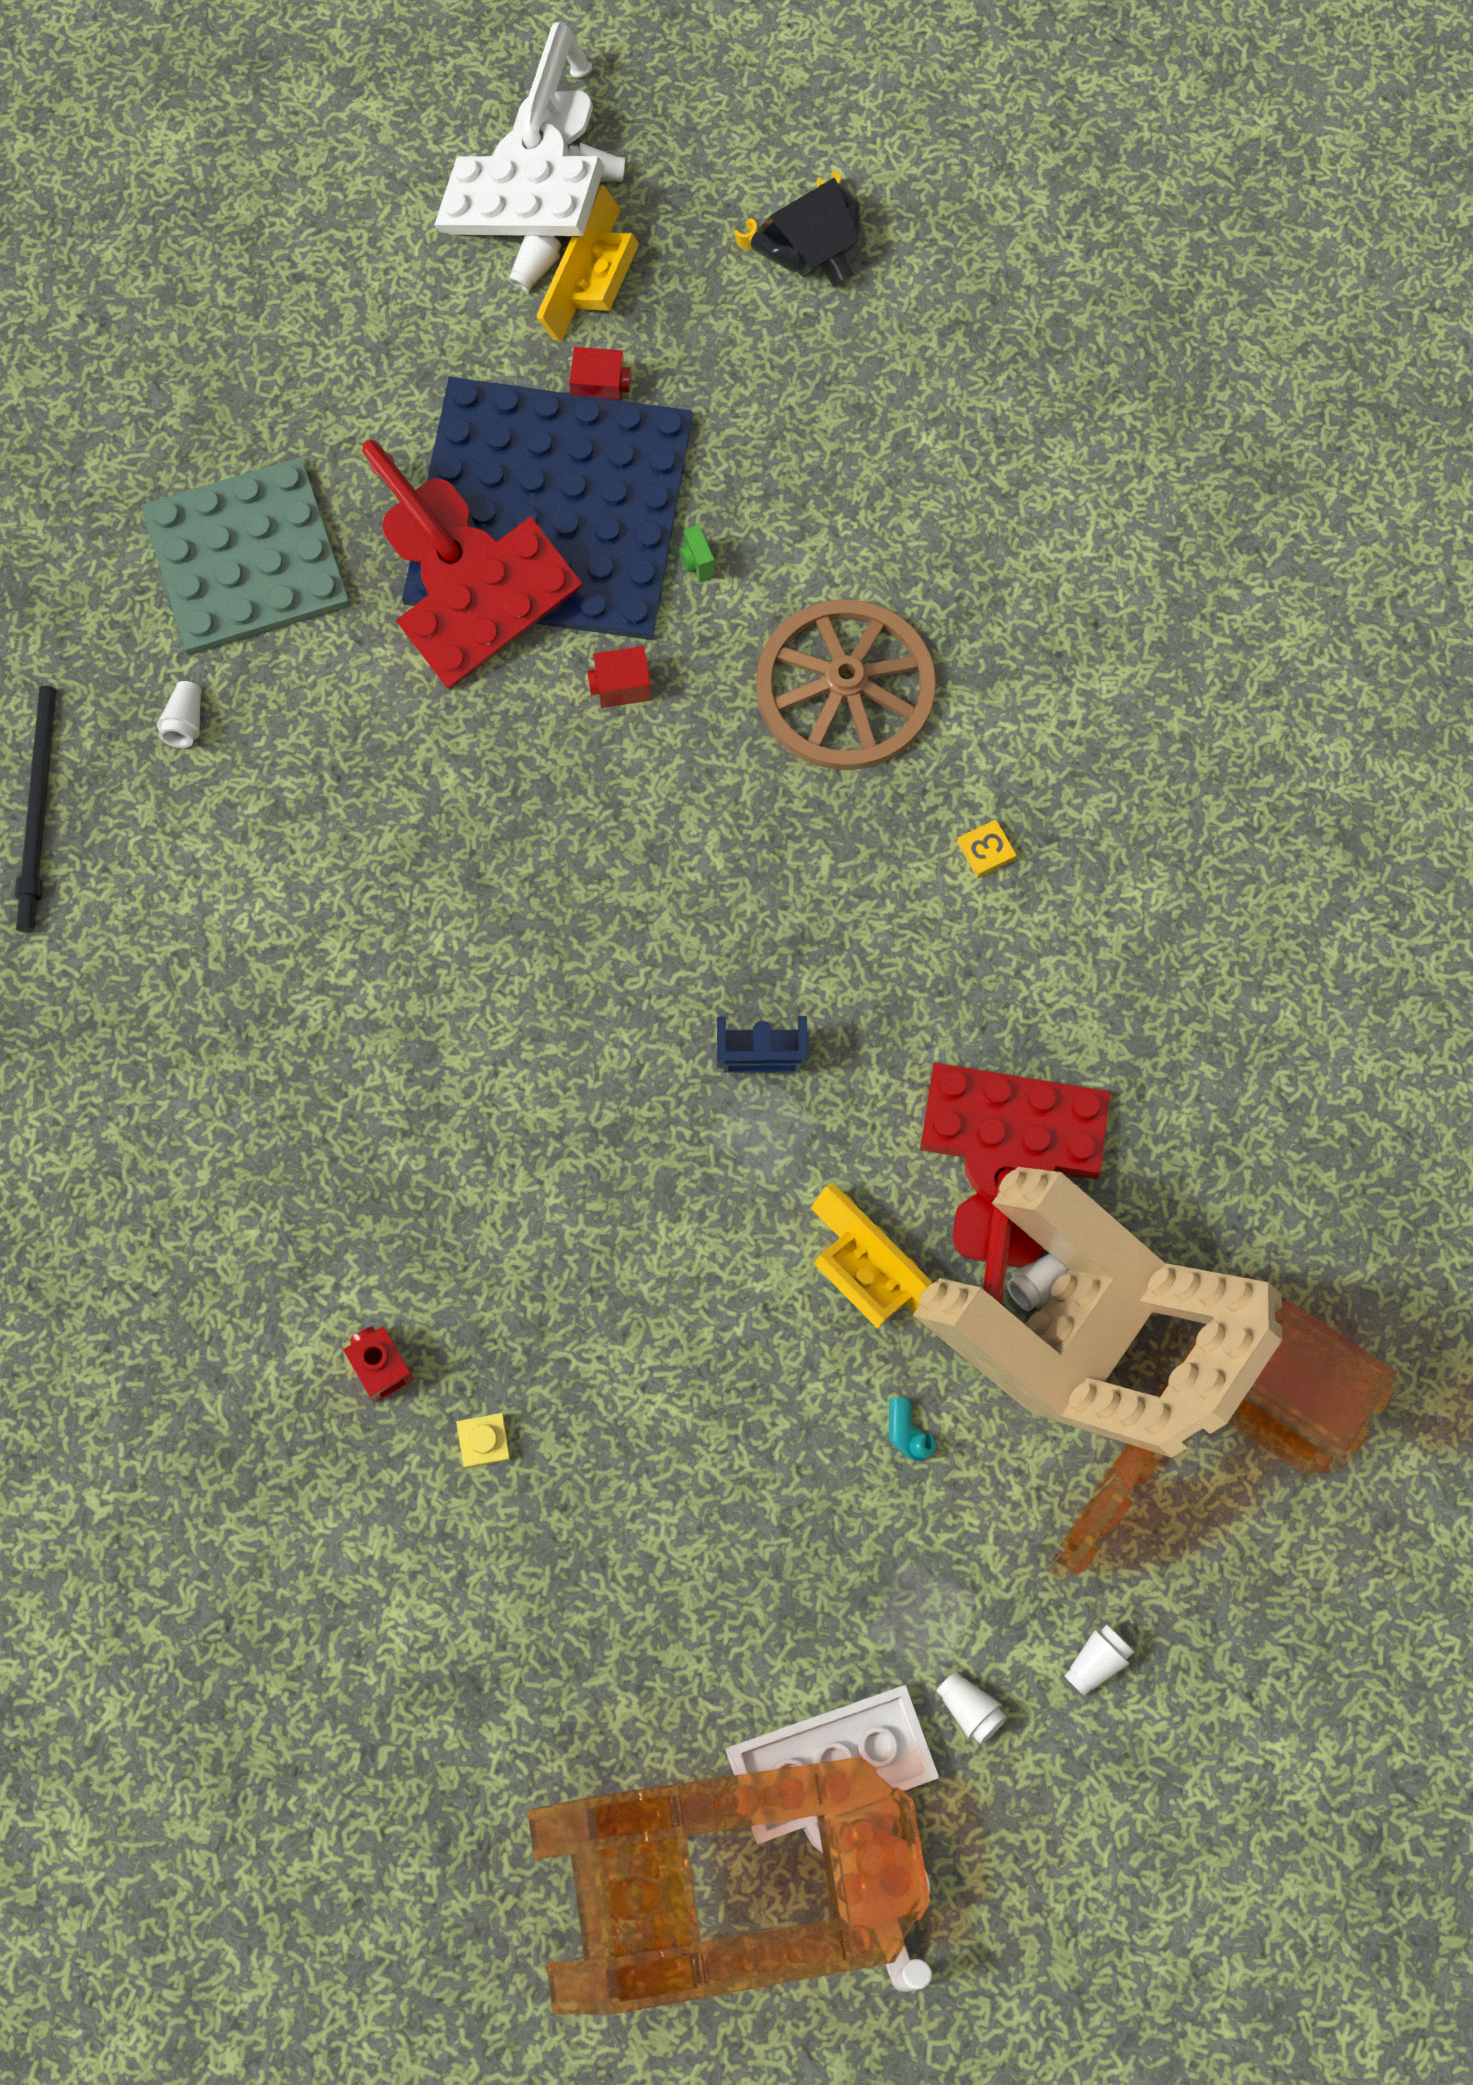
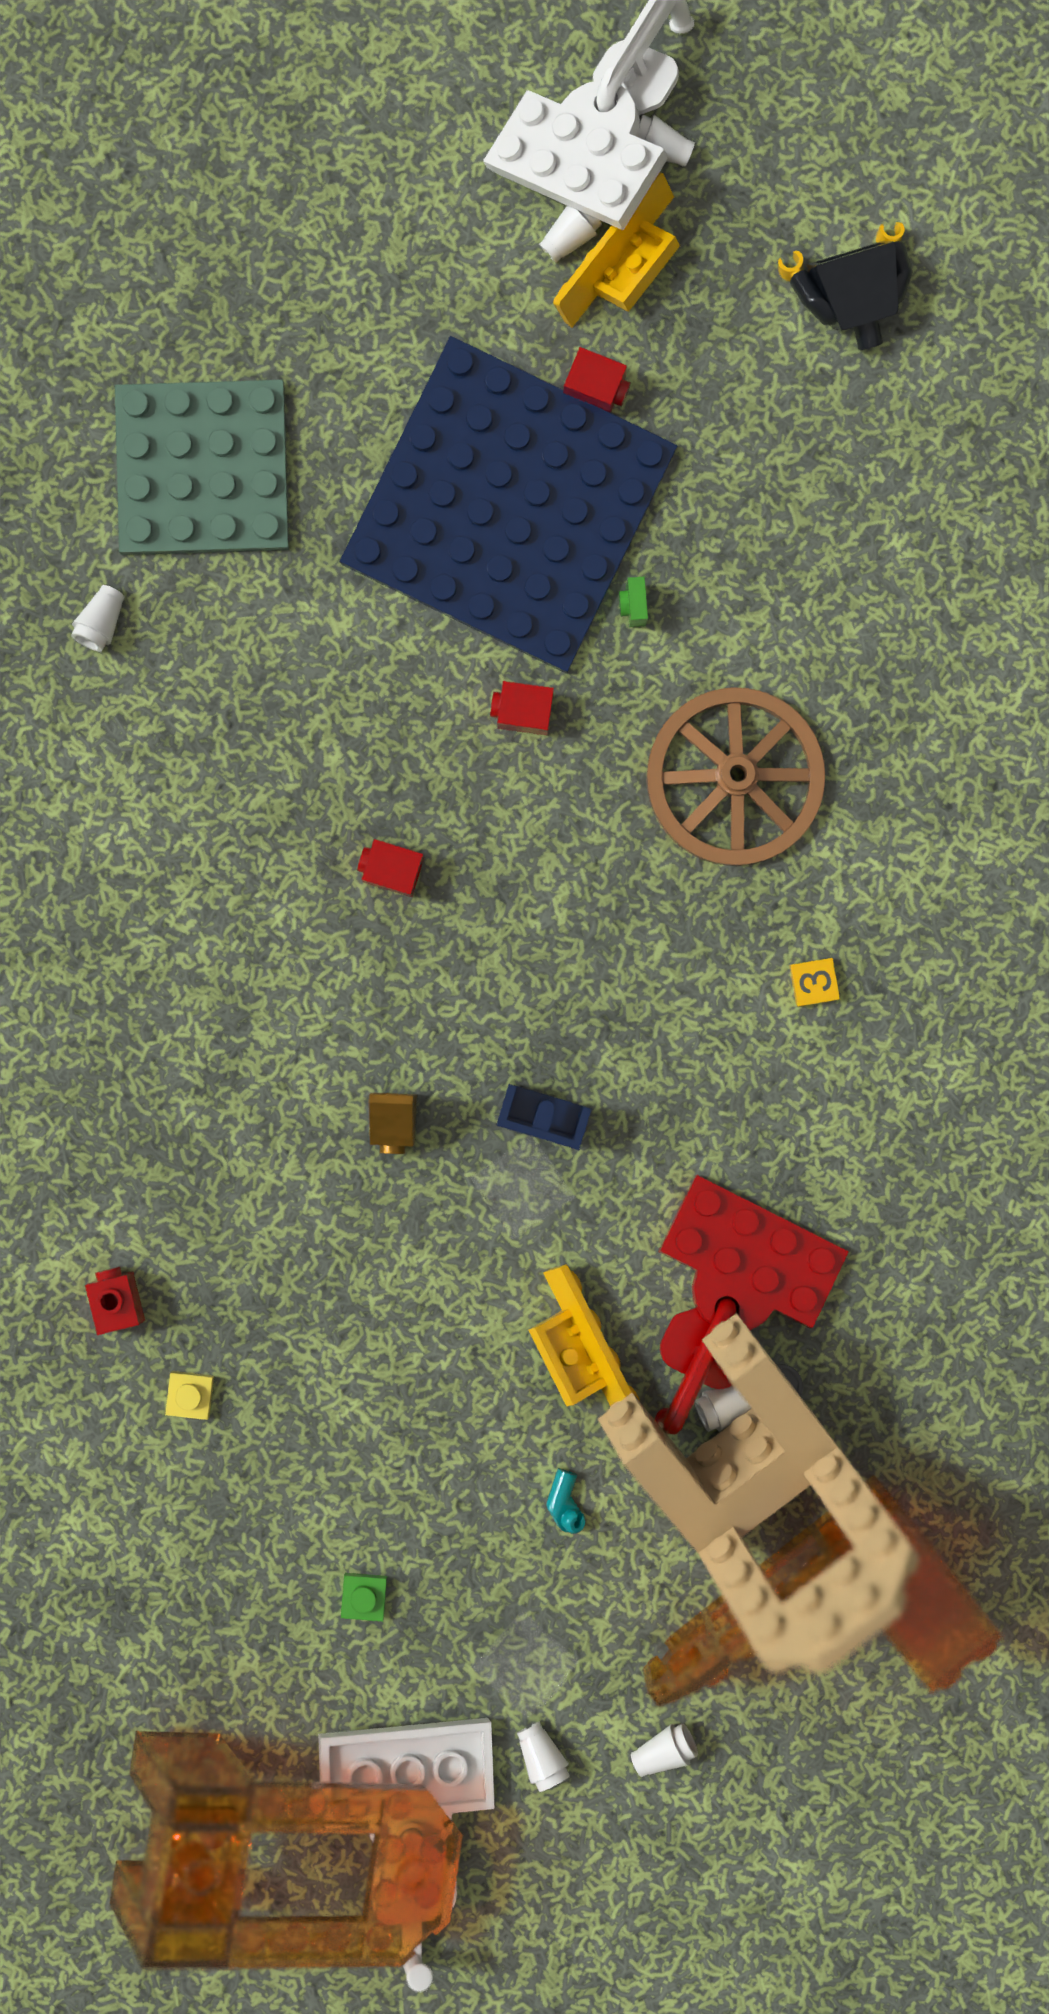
camera: 15 degrees right, 15 degrees up
(477, 587) = (410, 589): red plate -> none
(536, 858) = (391, 867): none -> red brick
(611, 1091) = (392, 1121): none -> pearl gold slope
(729, 1596) = (363, 1597): none -> bright green plate

